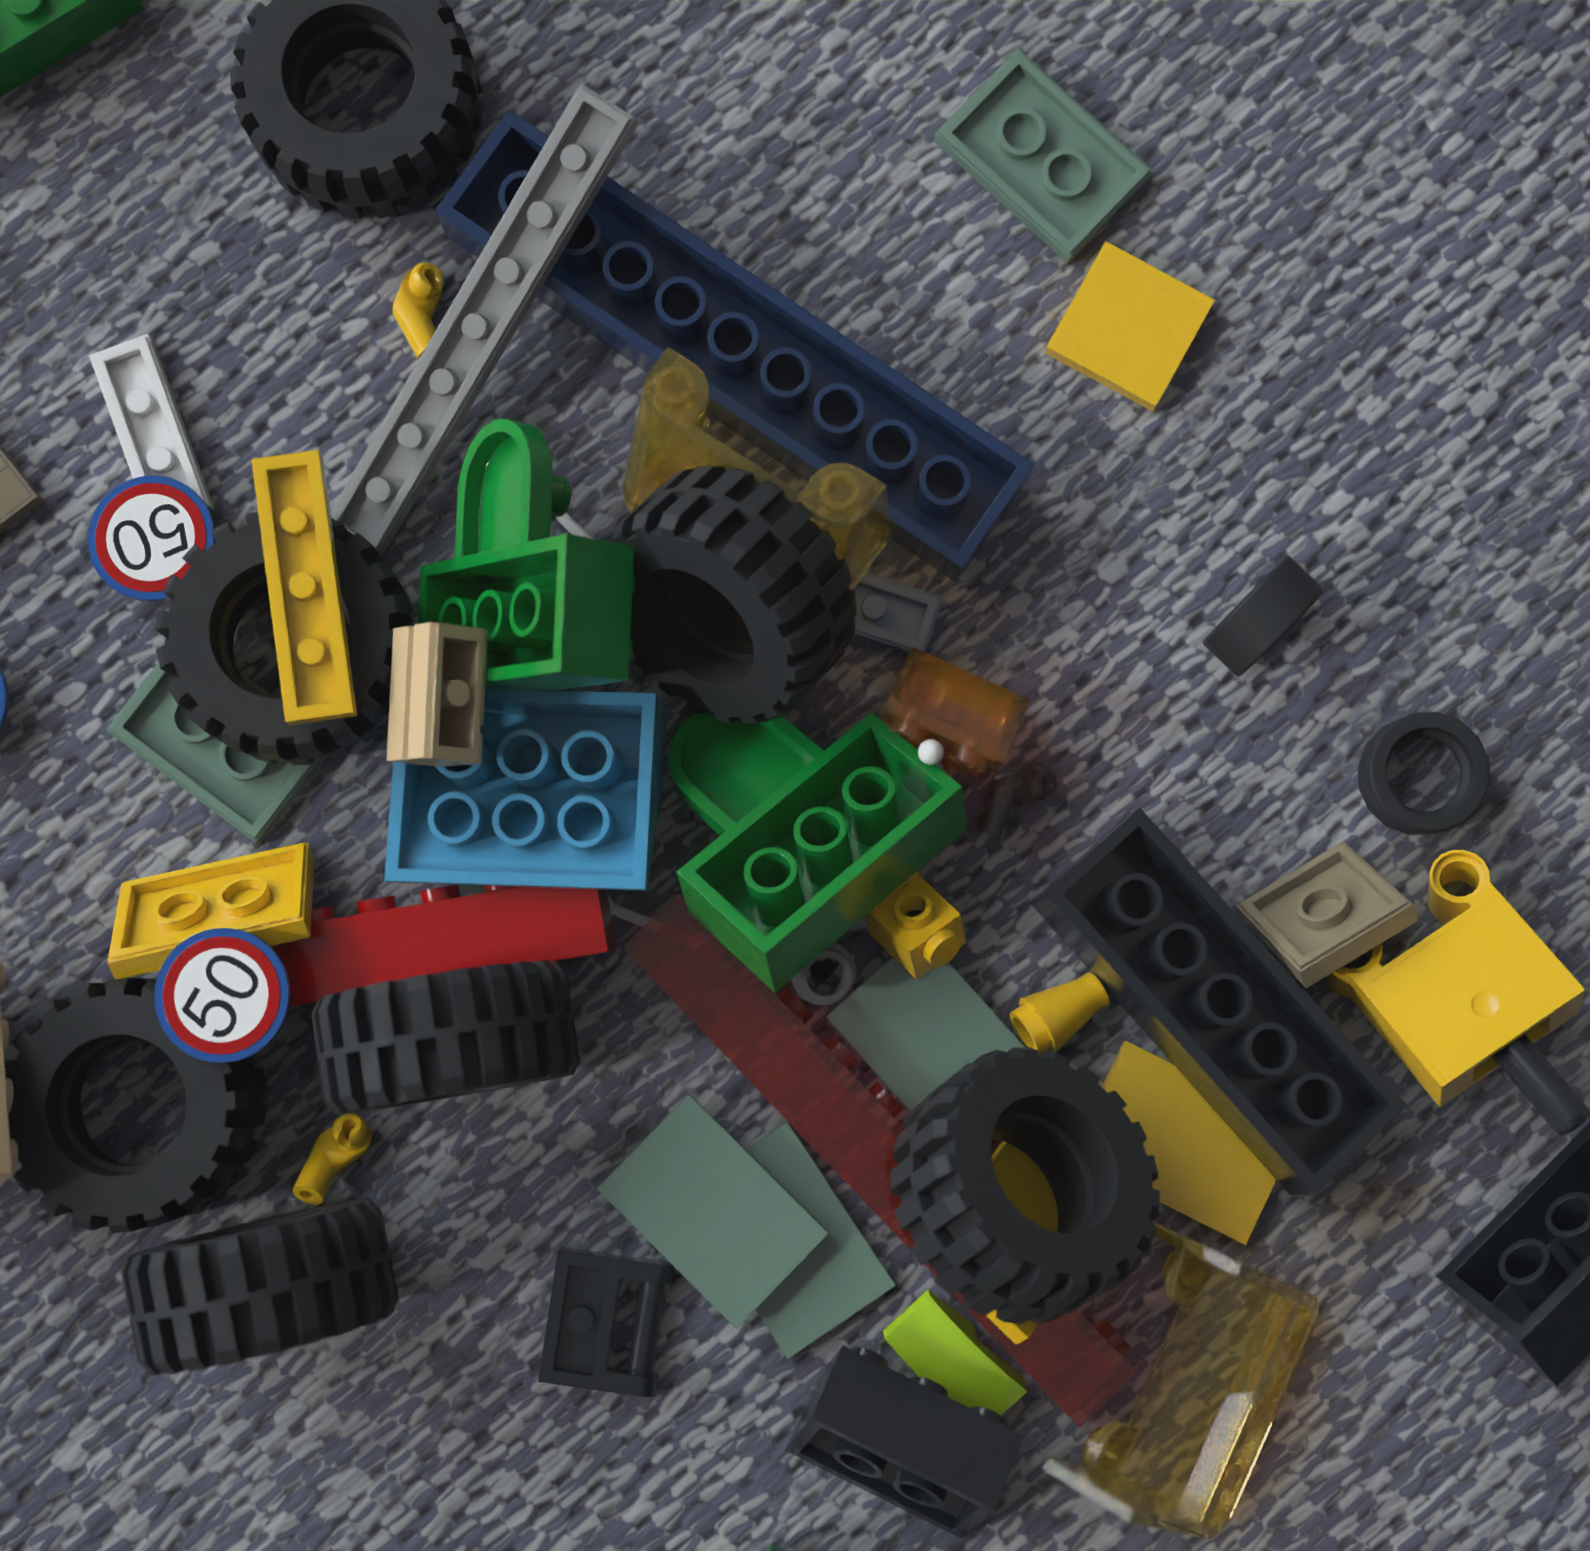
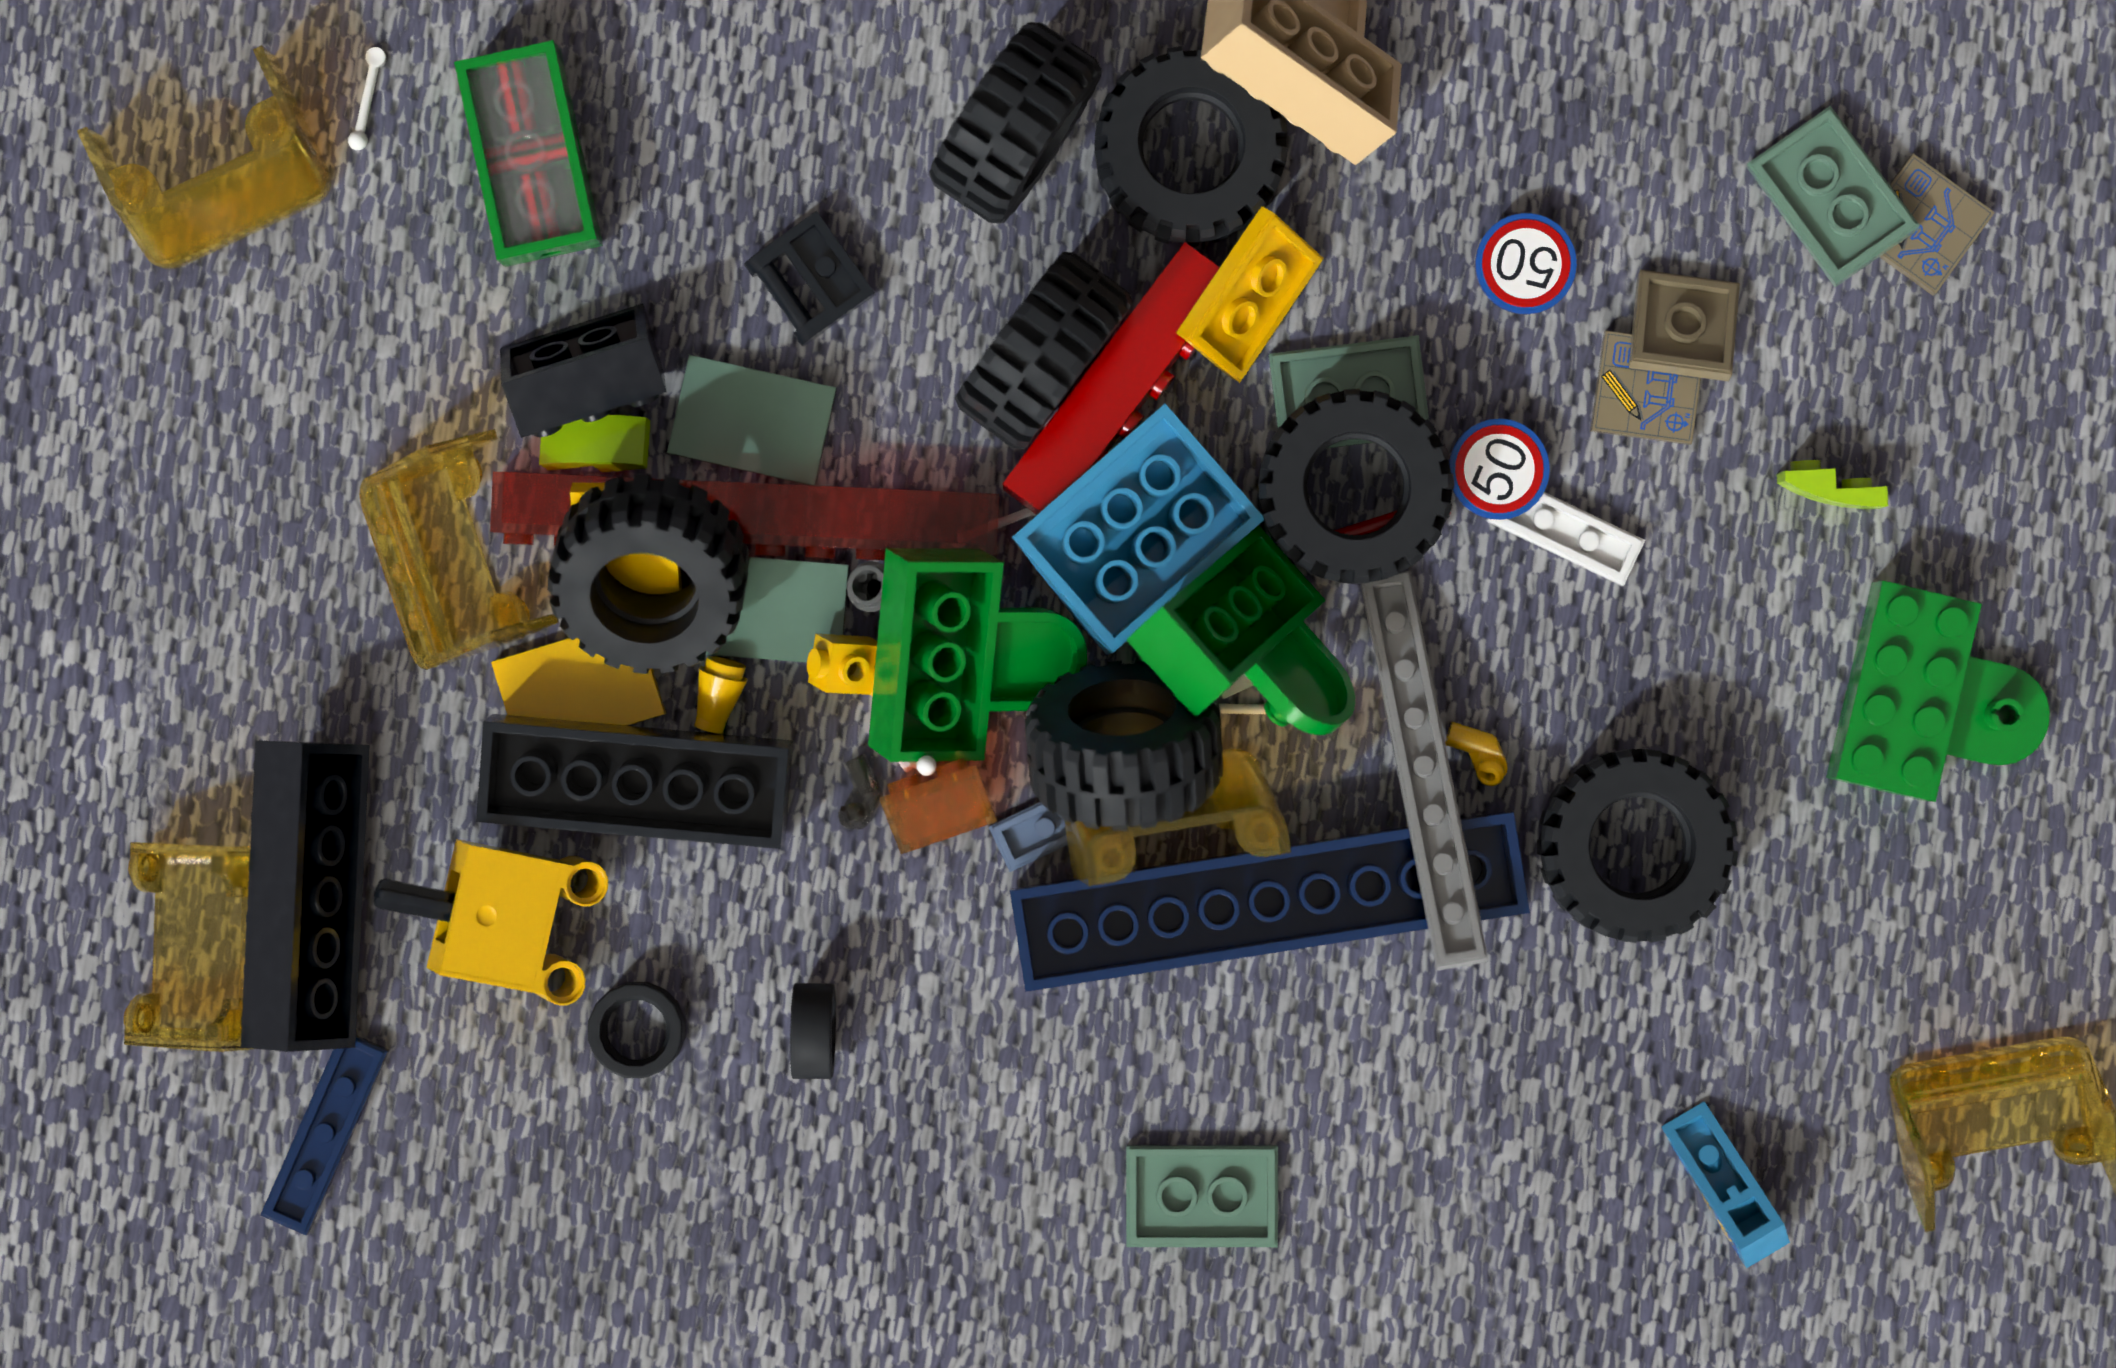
camera: 140 degrees right, 5 degrees up
(222, 995) = (1191, 255): piece -> none
(304, 587) = (1362, 521): yellow plate -> none
(331, 1154) = (1054, 222): yellow arm -> none
(437, 695) = (1230, 532): tan brick -> none
(712, 1211) = (808, 396): sand green tile -> none
(1129, 326) = (1053, 1139): yellow tile -> none
(1326, 913) = (619, 891): dark tan tile -> none

